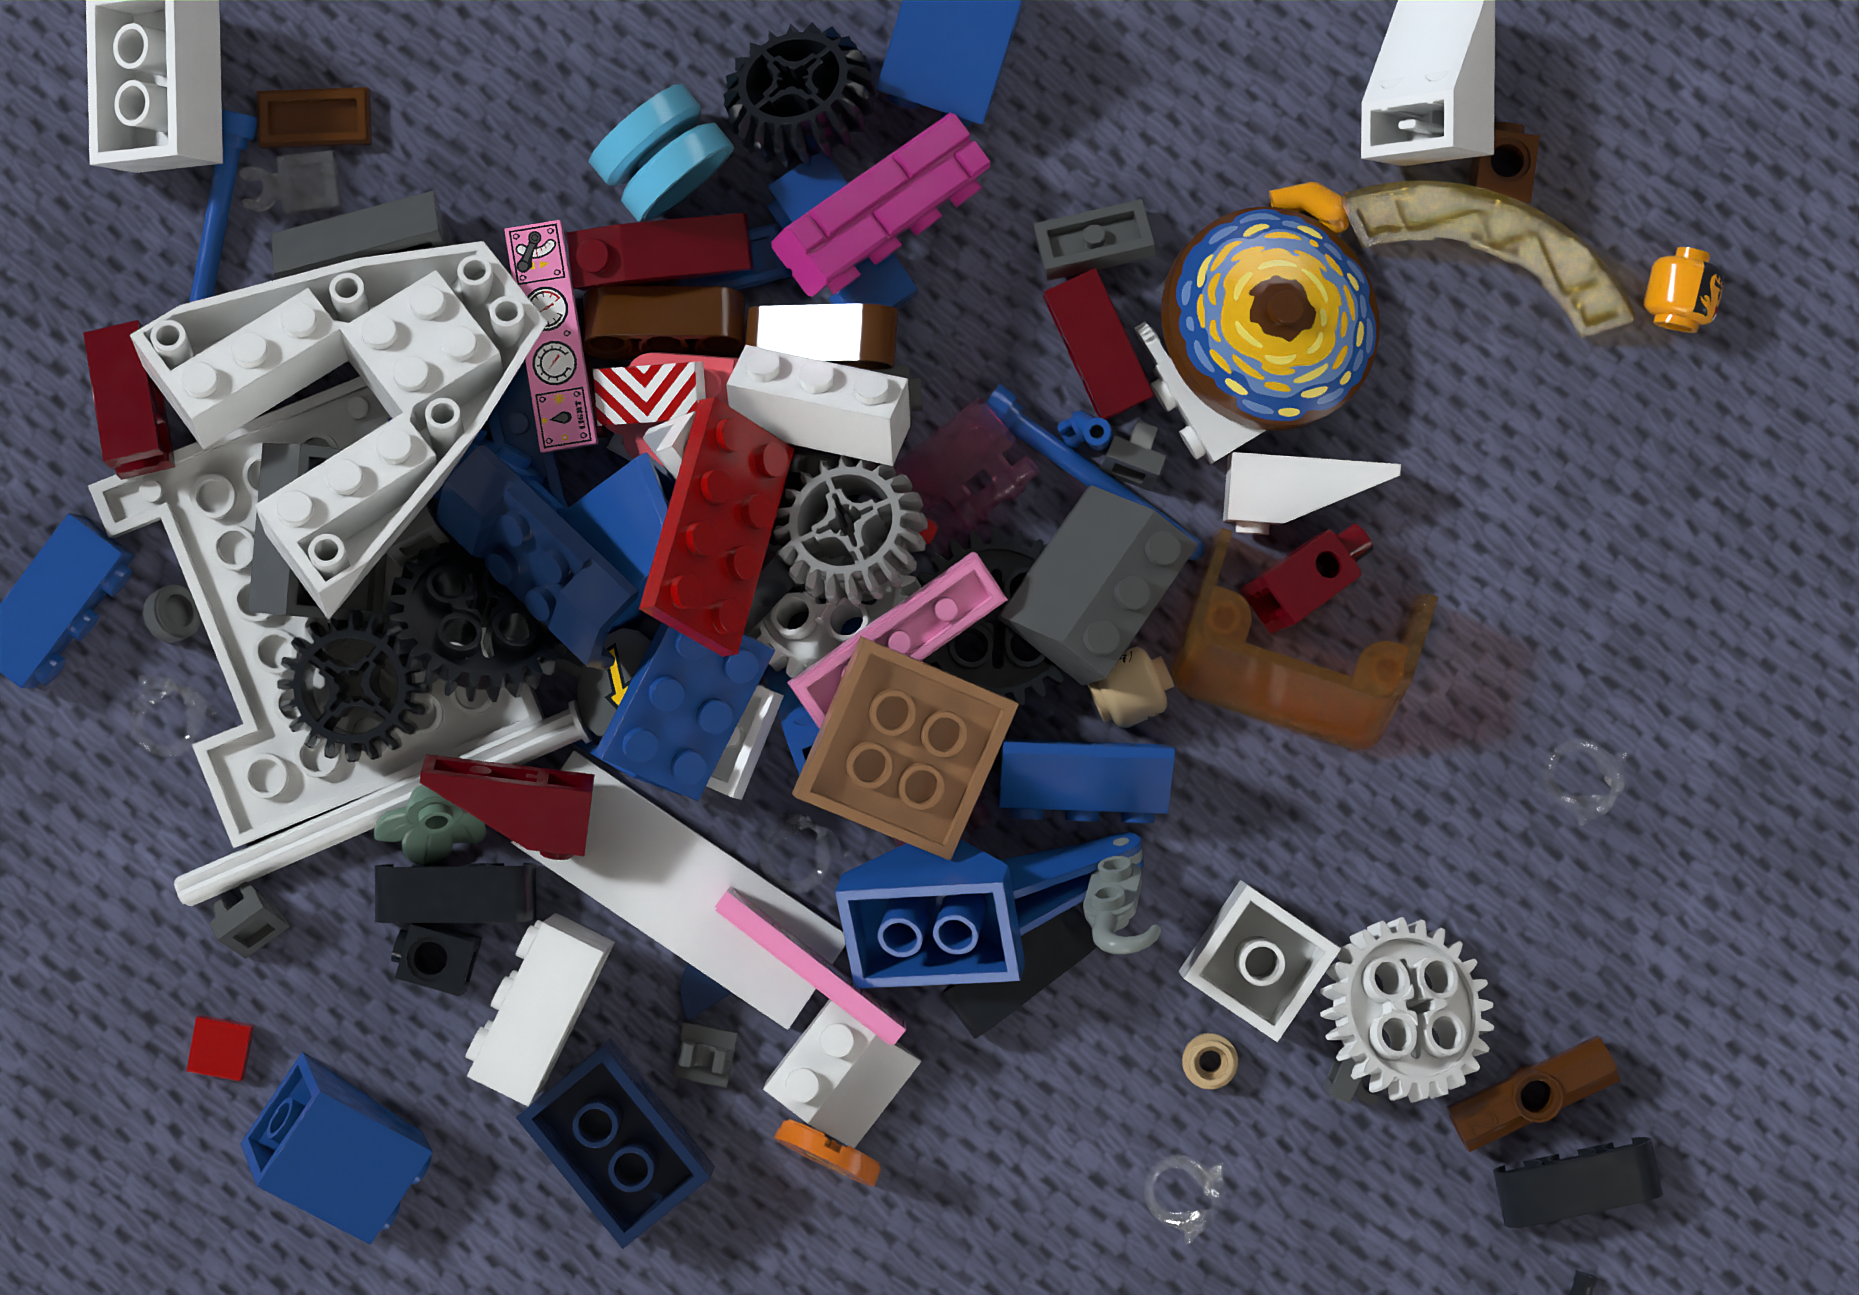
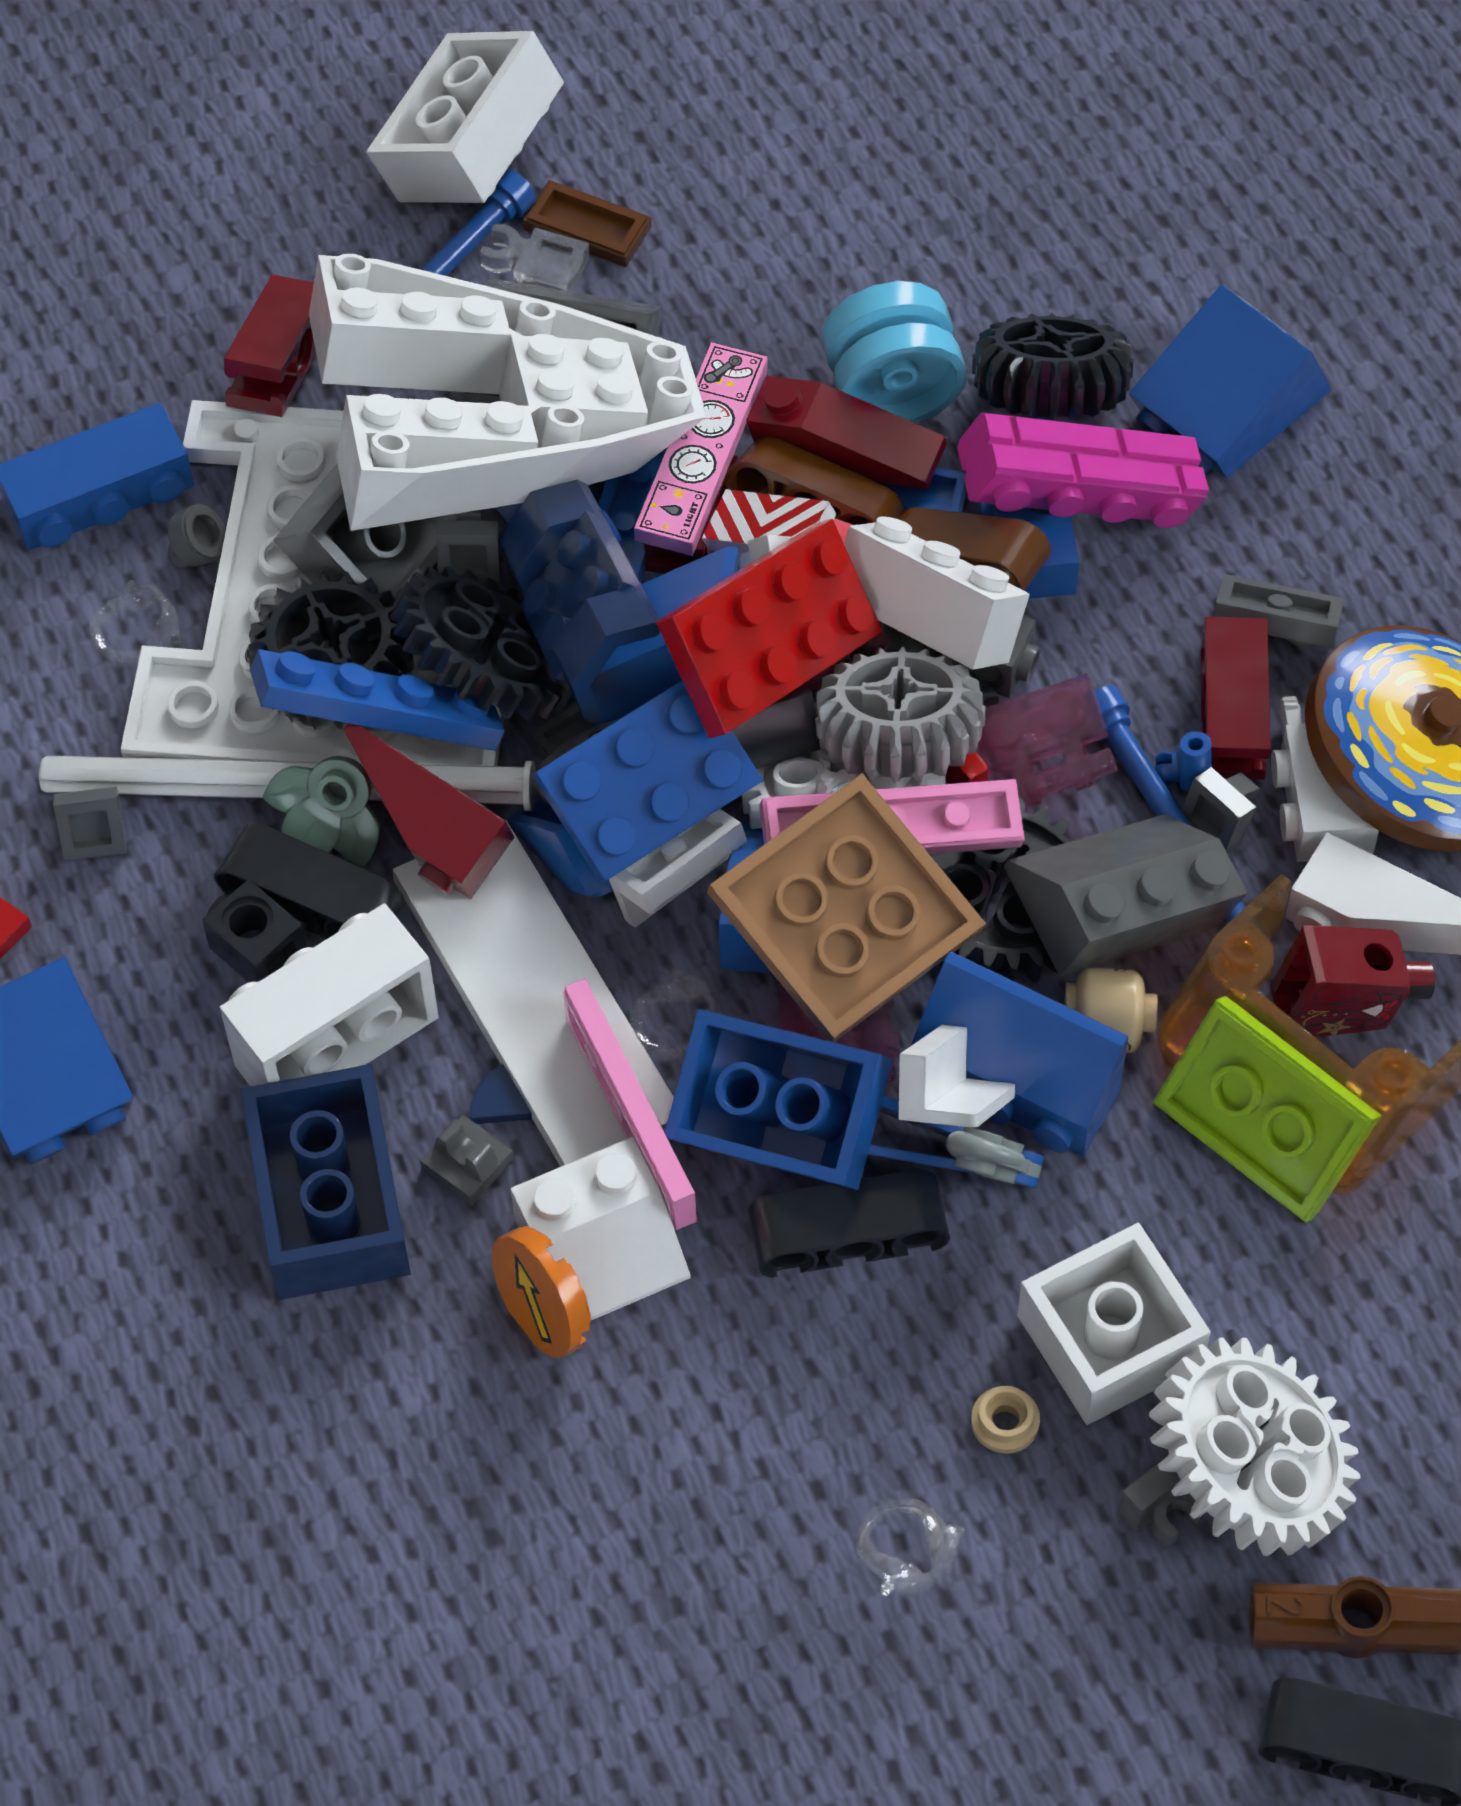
camera: 30 degrees right, 30 degrees down
(419, 746) = (372, 699): none -> blue plate
(1058, 852) = (936, 1086): none -> white panel
(1292, 723) = (1266, 1108): none -> lime tile

